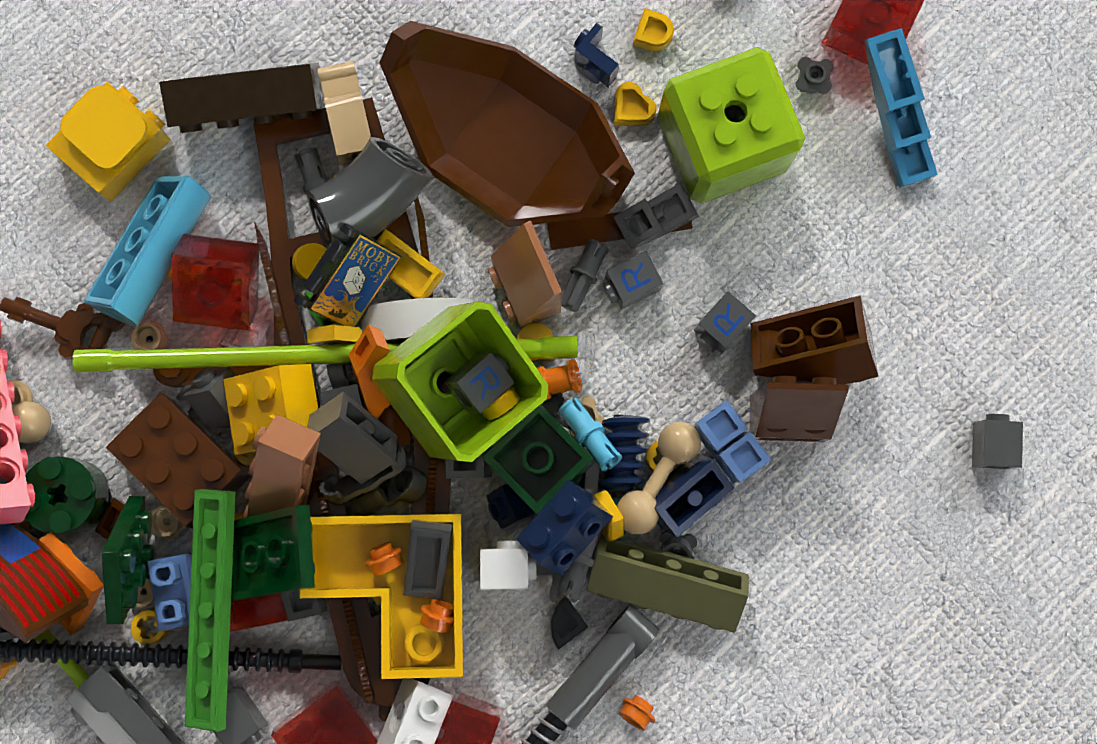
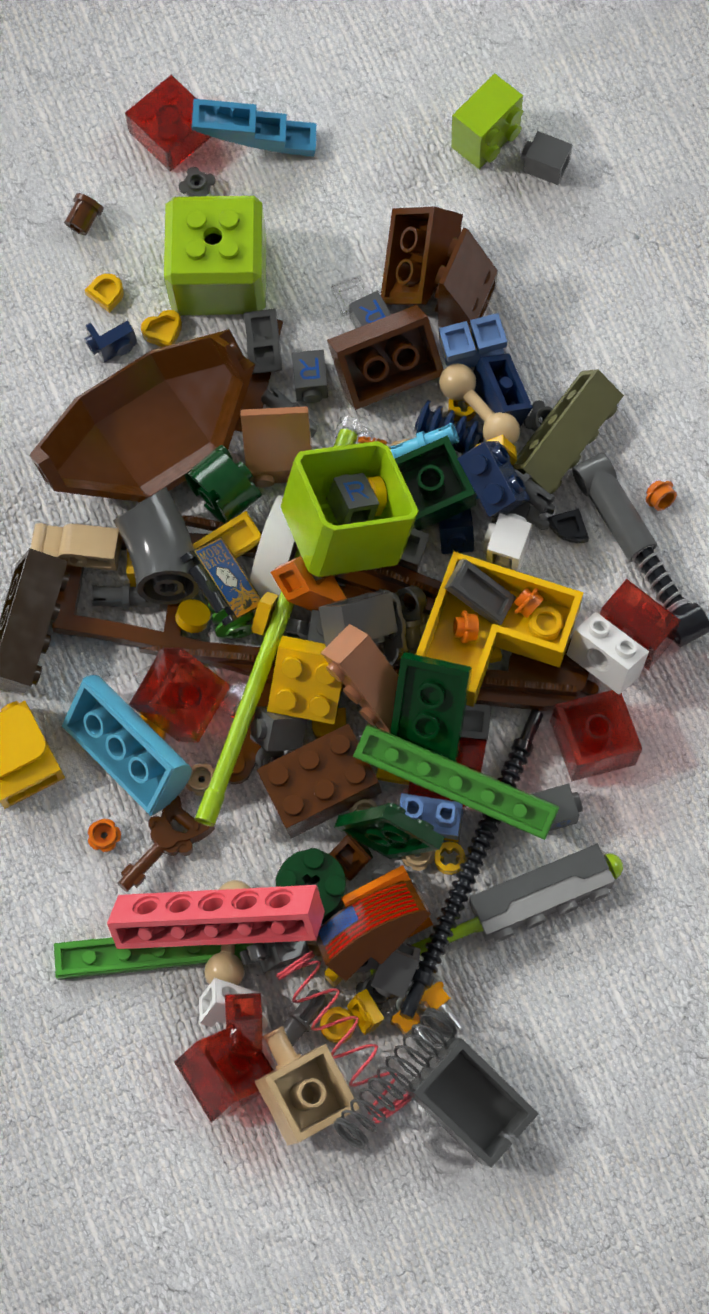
camera: 65 degrees left, 10 degrees down
(51, 257) = (103, 826): none -> orange plate
(466, 236) = (223, 484): none -> dark green brick
(678, 353) = (386, 357): none -> reddish brown brick
(1012, 361) = (487, 121): none -> lime brick

